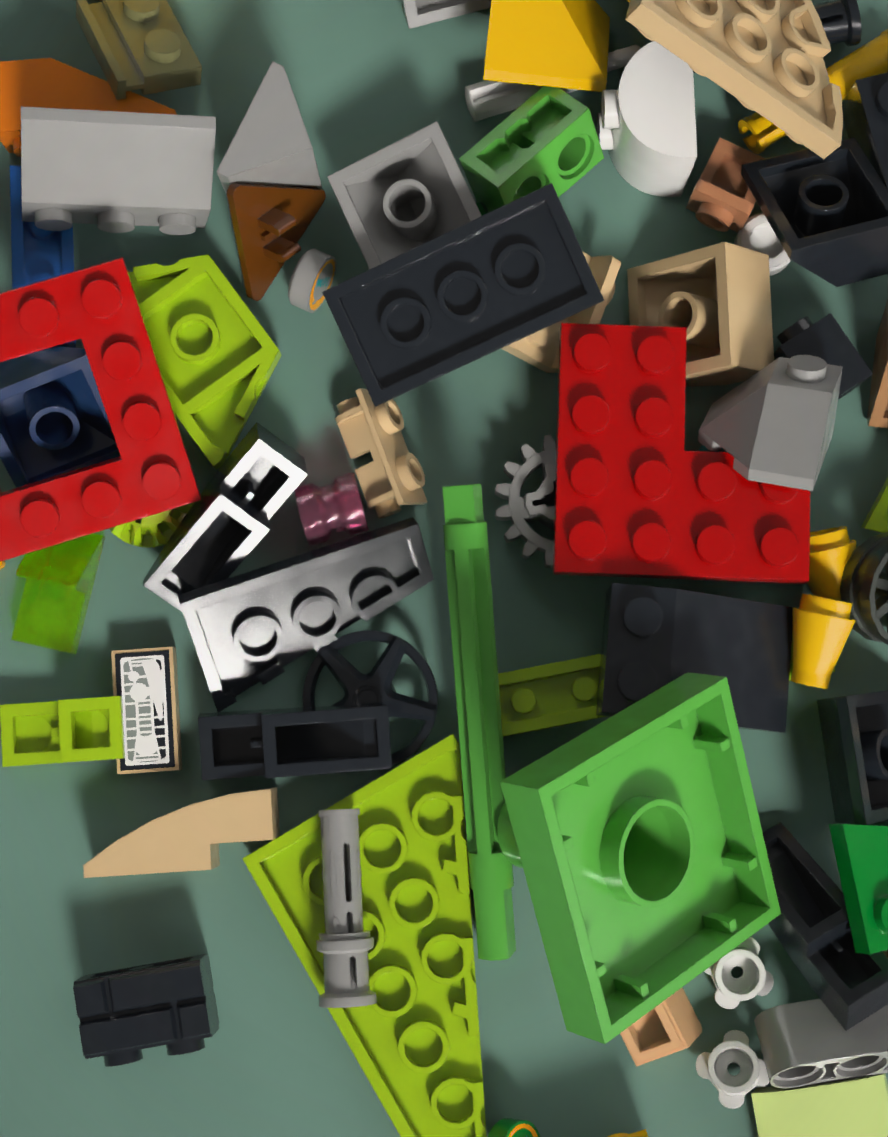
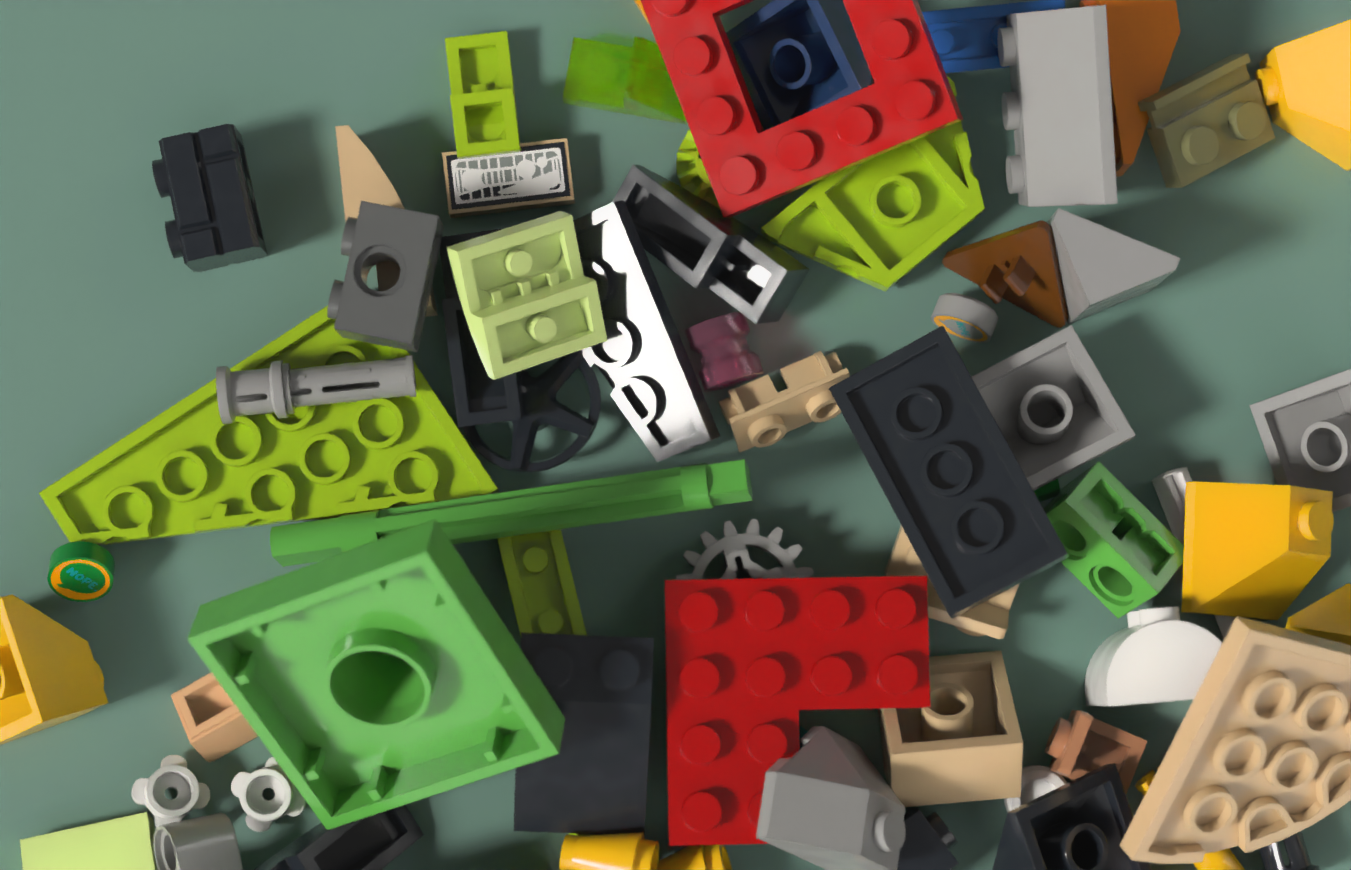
camera: 80 degrees right, 0 degrees up
(199, 826) = (394, 315): none -> dark grey brick
(266, 693) = (527, 294): none -> yellowish green slope

